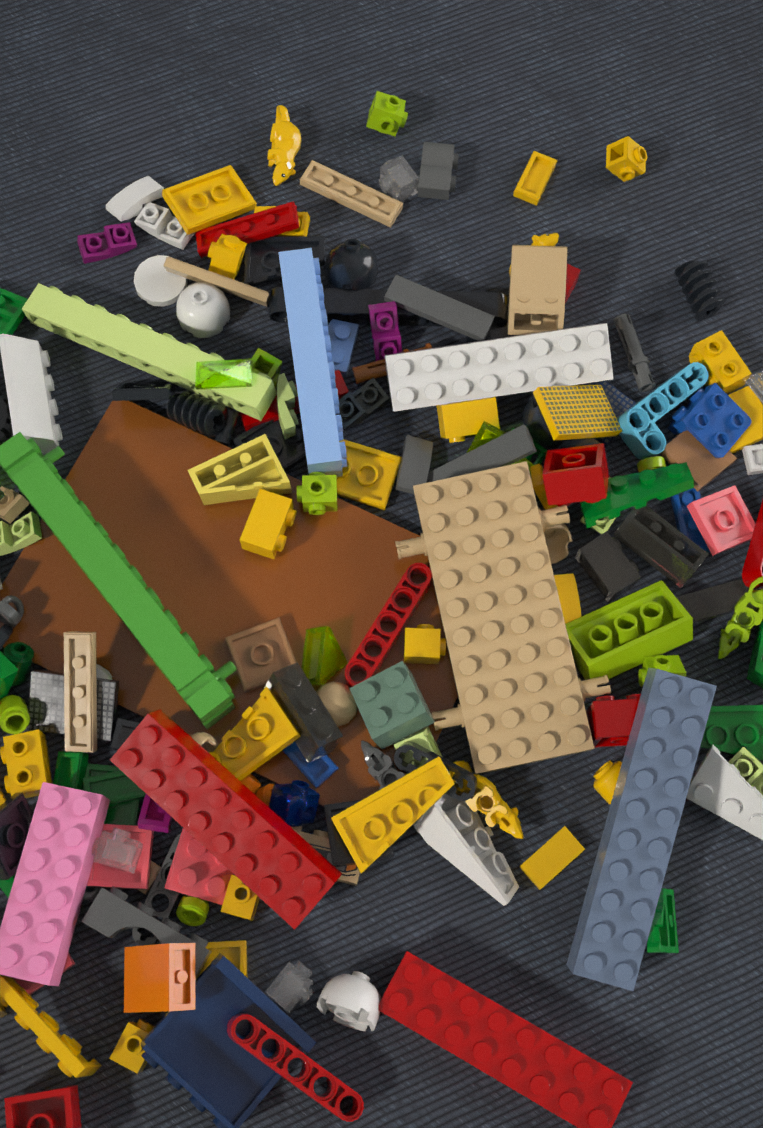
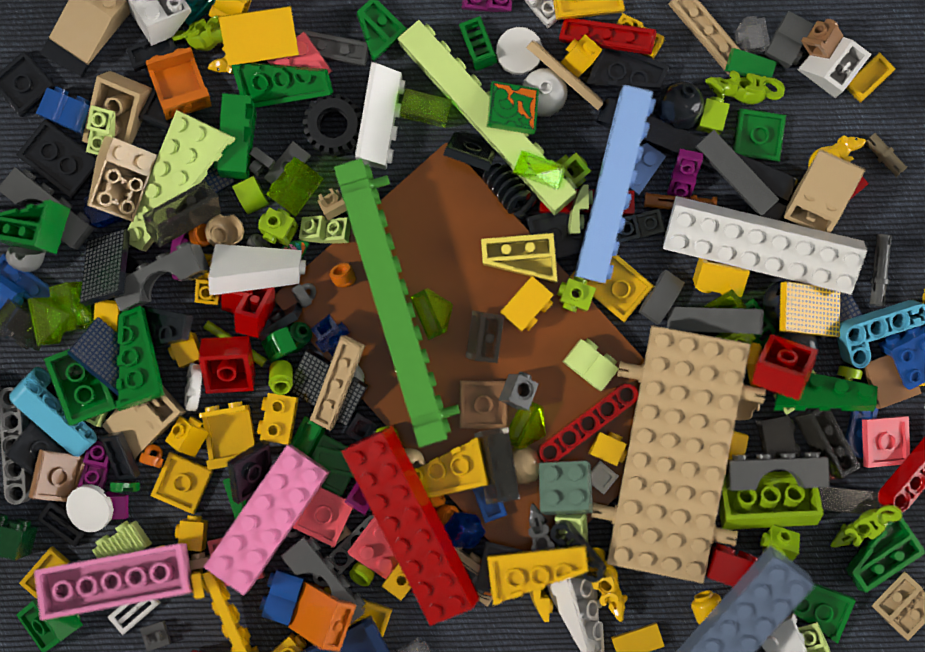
camera: 25 degrees right, 15 degrees up
(45, 573) = (342, 275): none -> orange tile
(50, 641) = (329, 333): none -> clear blue brick
(79, 369) = (426, 108): none -> clear neon green brick
(103, 978) = (282, 597): none -> blue brick
(117, 850) = (323, 514): clear brick -> none
(125, 300) = (483, 57): none -> green slope
(164, 575) = (432, 311): none -> clear neon green slope
(171, 326) = (512, 107): none -> tile
(233, 575) = (485, 336): none -> clear smoke brick
(290, 630) = (510, 395): none -> dark grey brick
(365, 562) = (591, 364): none -> yellowish green brick
(390, 263) = (713, 115): none -> lime brick
(408, 207) = (746, 63): none -> green tile
(414, 231) = (746, 89): none -> lime animal
(418, 854) = (542, 603): none -> yellow slope
(431, 682) = (602, 477): none -> white tile
(448, 268) = (759, 135): none -> green tile
(470, 153) = (823, 39): none -> medium nougat brick
(493, 174) = (839, 70): none -> white slope
(585, 241) = (885, 154): none -> dark tan pin
(651, 578) = (746, 473): none -> dark grey arch

